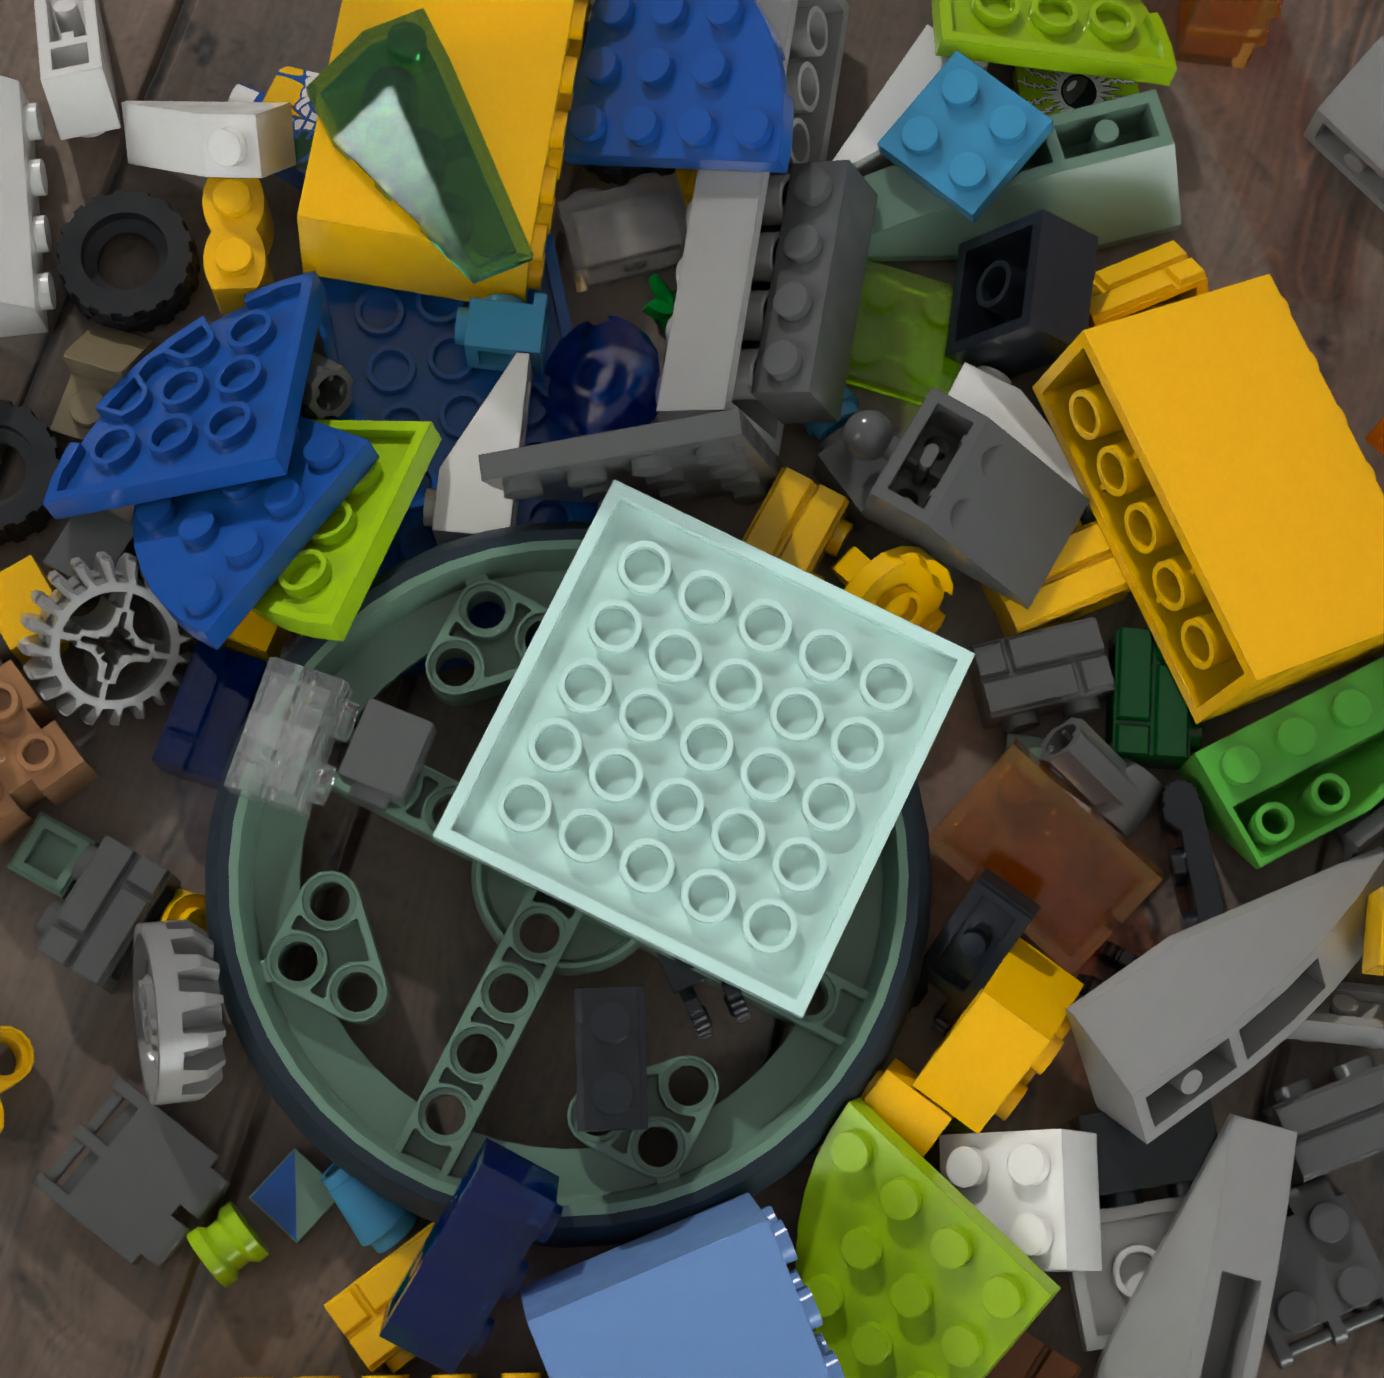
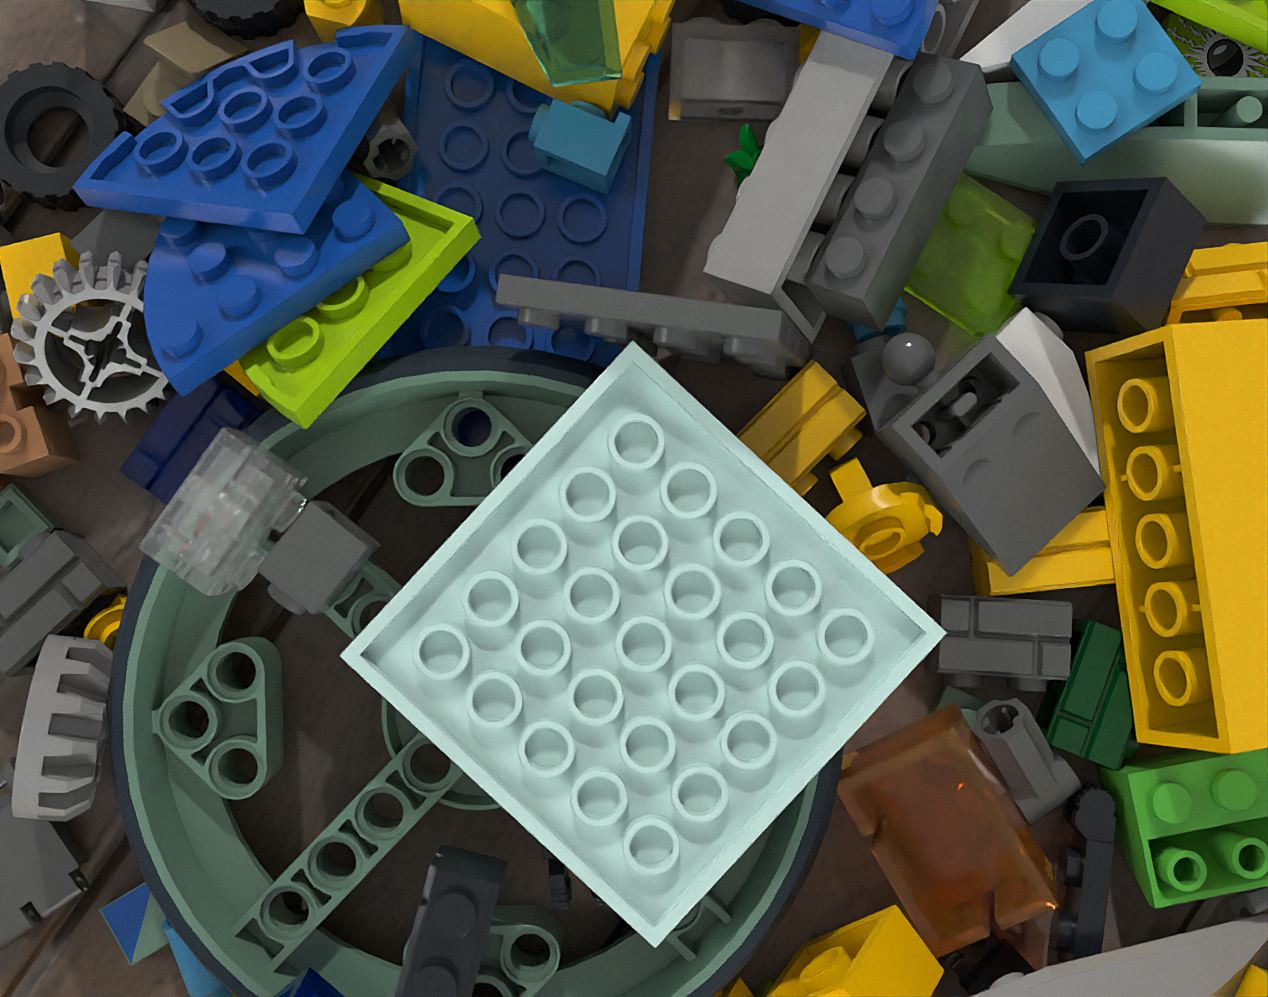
camera: 20 degrees right, 10 degrees up
(228, 1244) = (65, 950): lime wheel -> none
(462, 501) = (533, 249): white slope -> none
(602, 378) = (661, 220): clear blue tile -> none
(973, 945) = (853, 900): black hinge -> none

